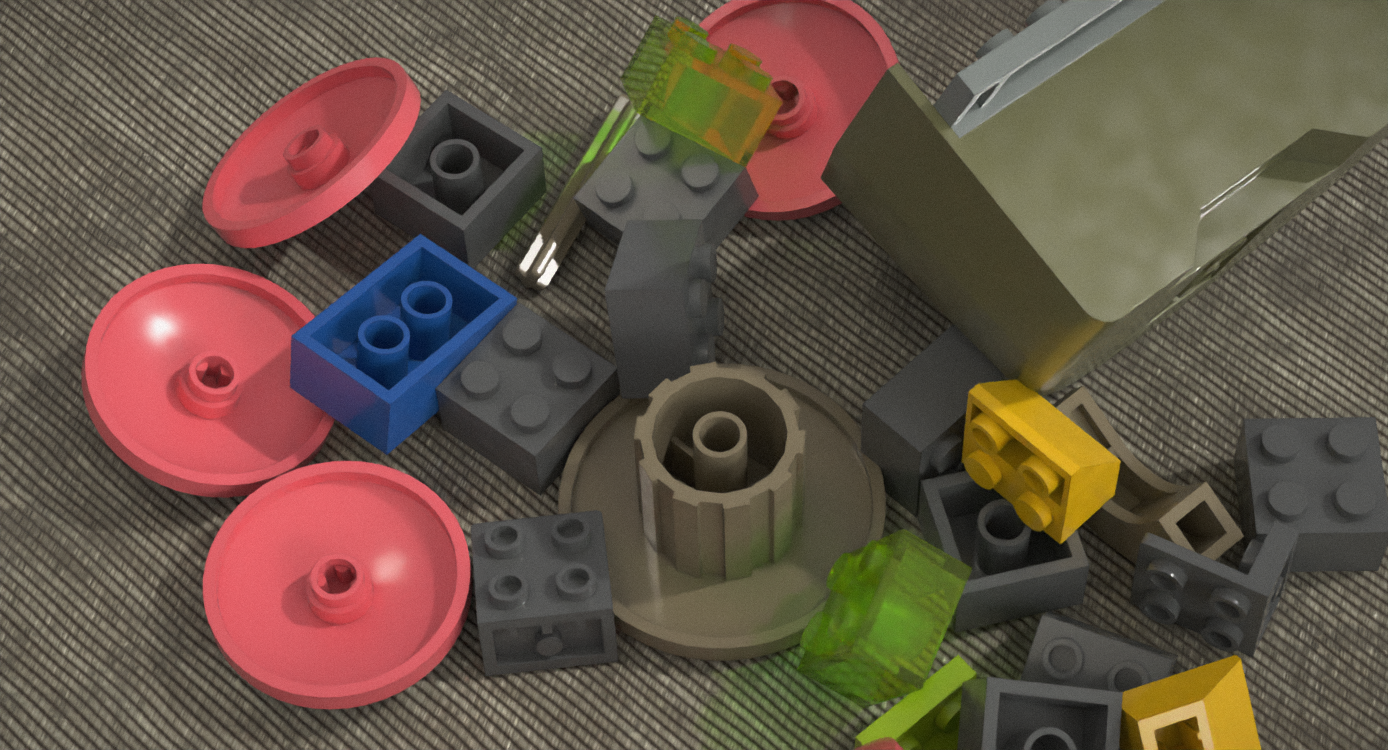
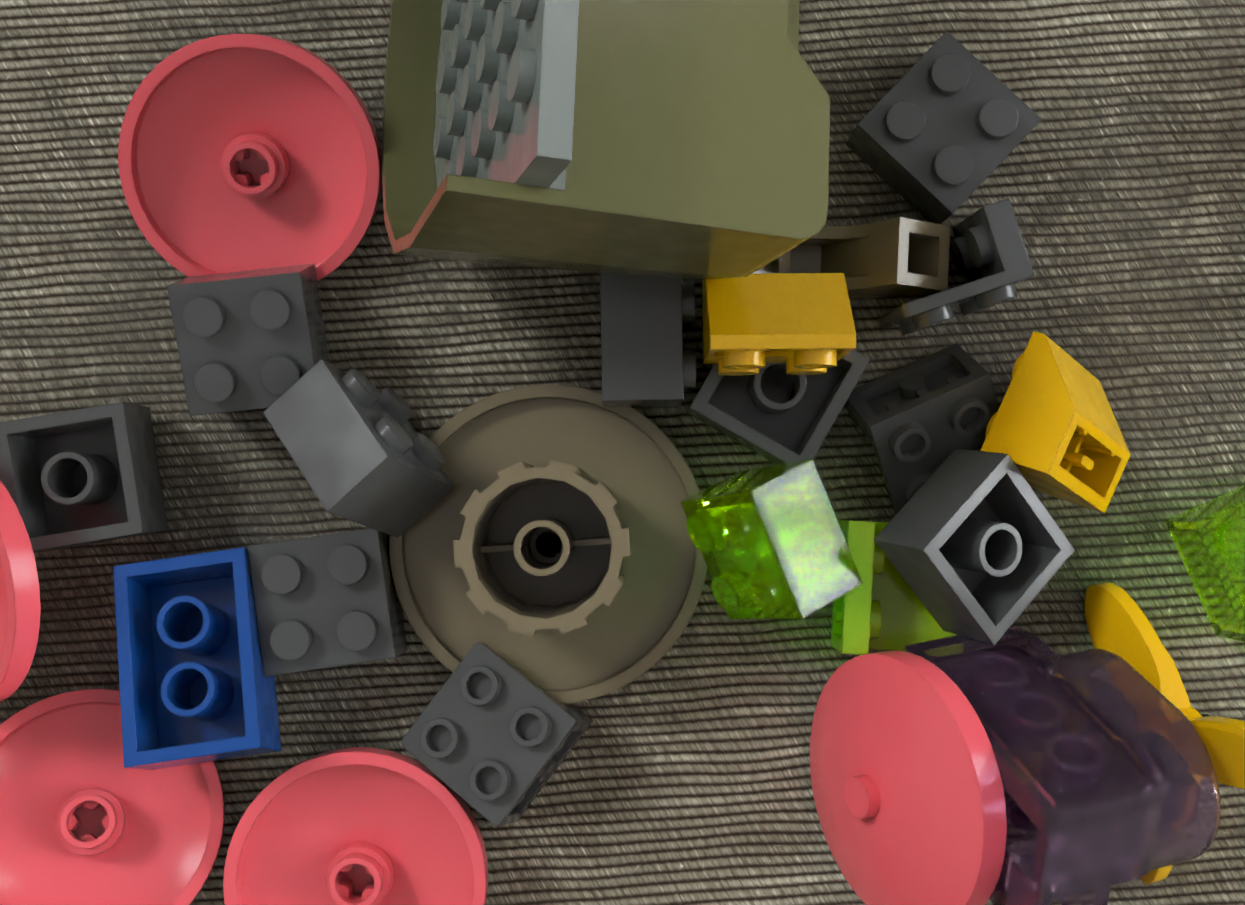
camera: 45 degrees left, 30 degrees up
(565, 217) = (158, 339): dark tan axle -> none
(701, 89) = (198, 243): clear neon green brick -> none

